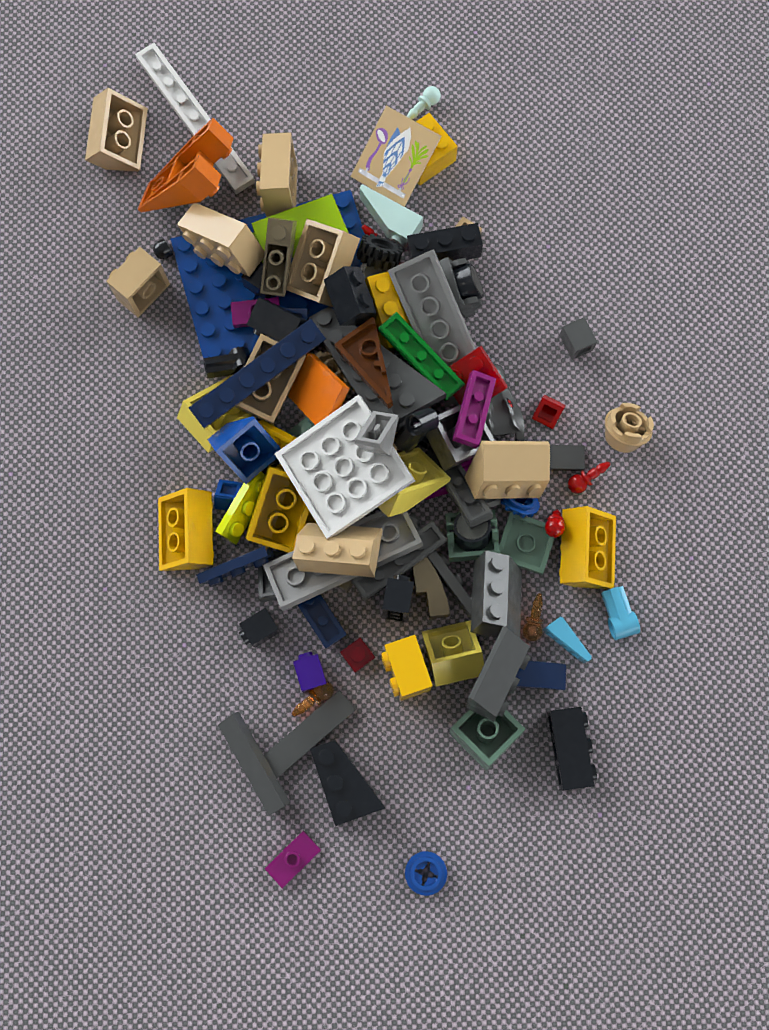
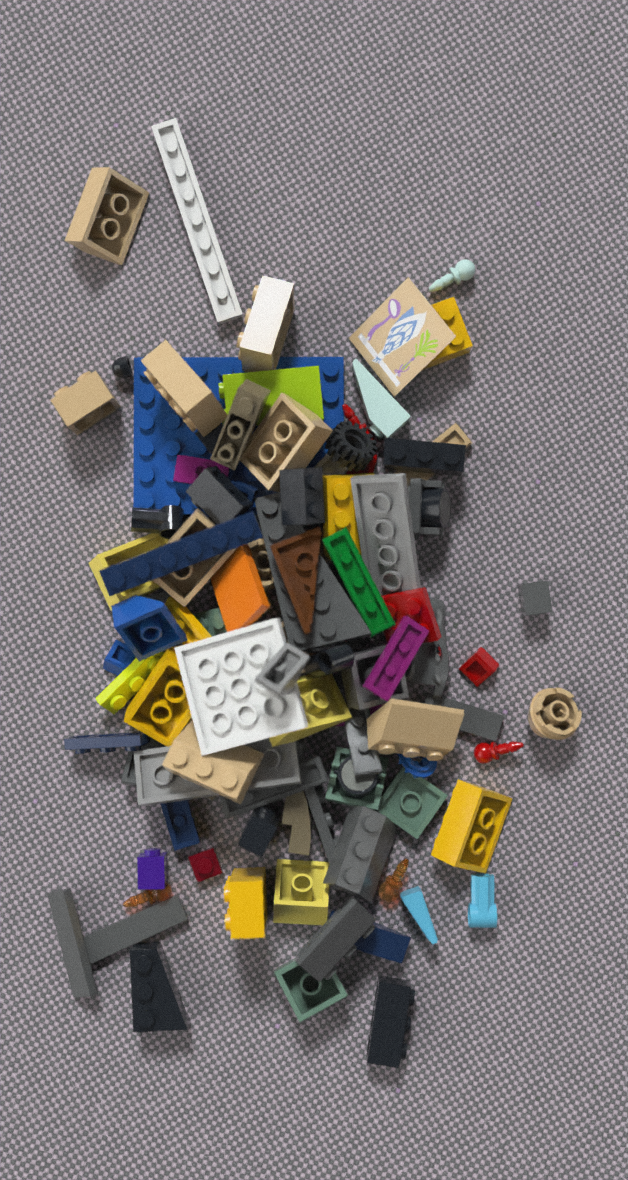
camera: 20 degrees right, 10 degrees up
(185, 530) = (66, 687): yellow slope -> none
(190, 173) = (164, 298): orange wedge -> none
(258, 628) = (113, 810): black brick -> none
(292, 859) = (85, 1045): magenta plate -> none
(432, 884) = (213, 1109): blue gear -> none
(555, 524) = (443, 796): red bar -> none

